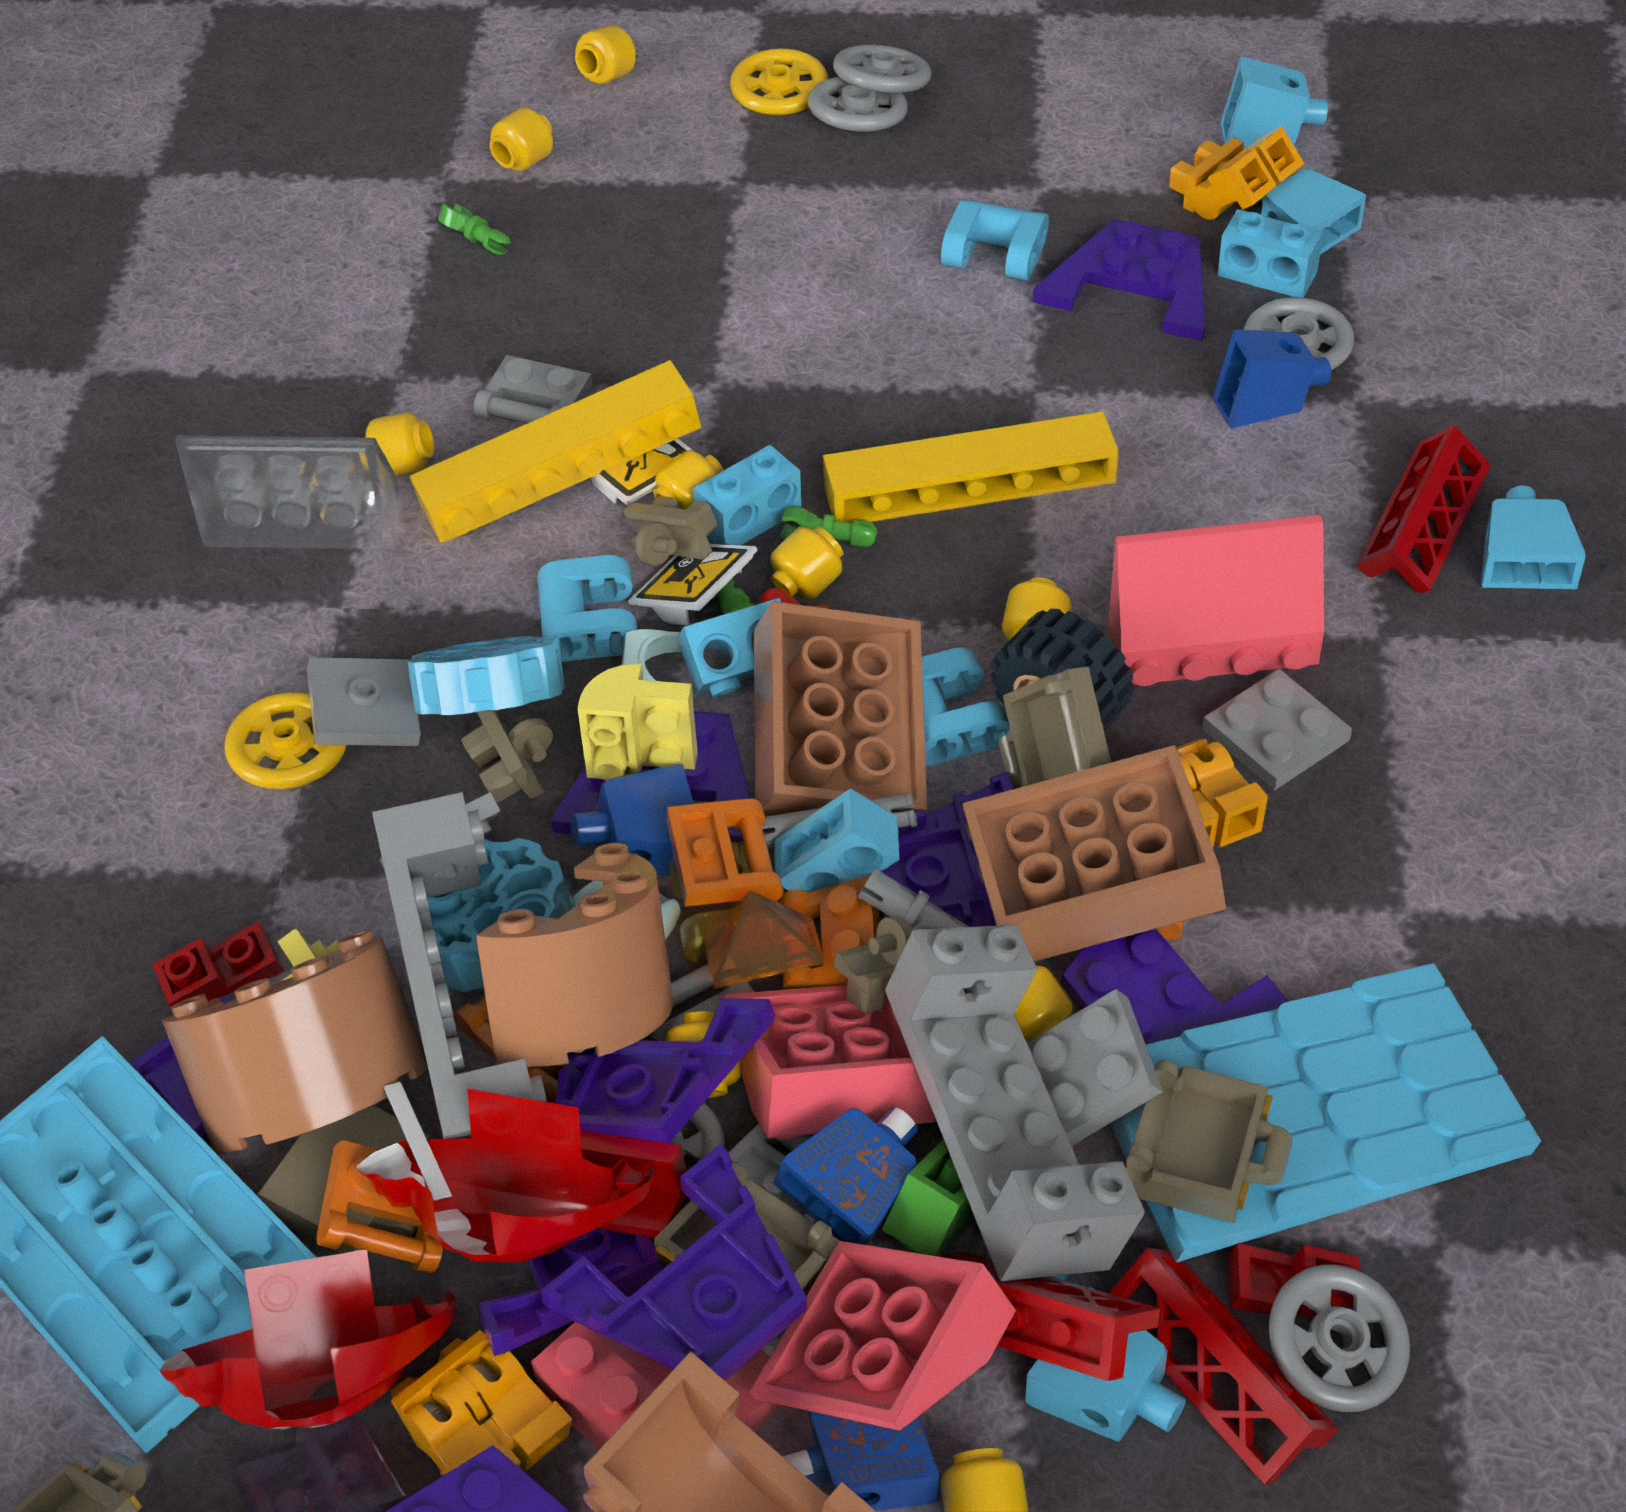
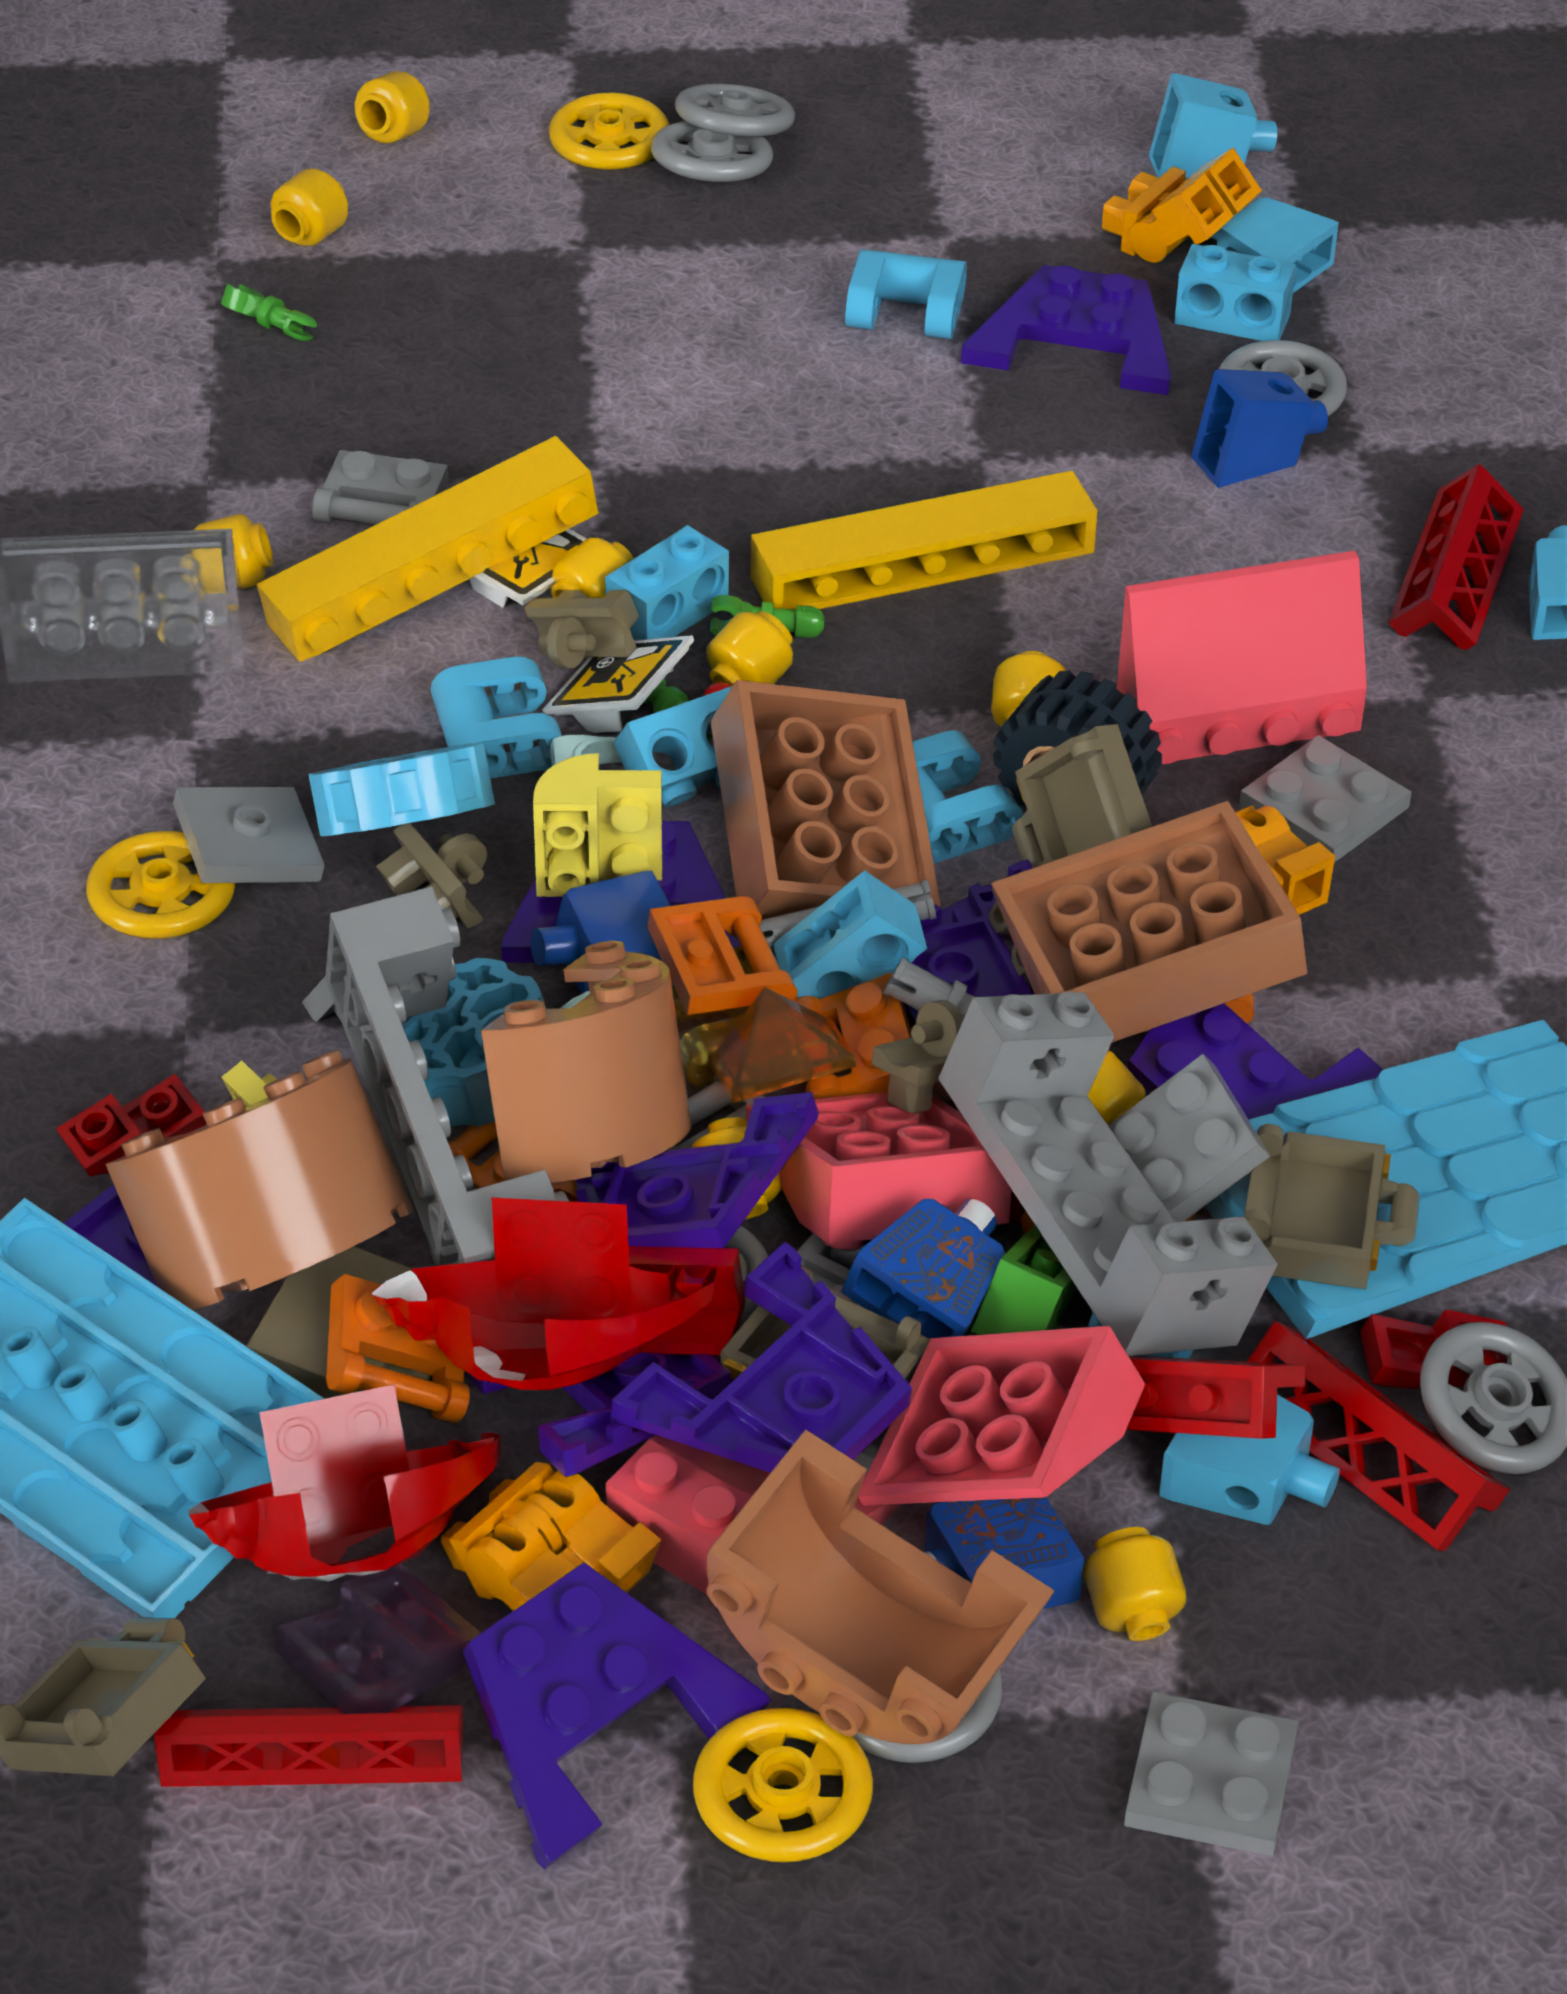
camera: 10 degrees left, 5 degrees down
(417, 1141) = (433, 1264): white sticker -> none

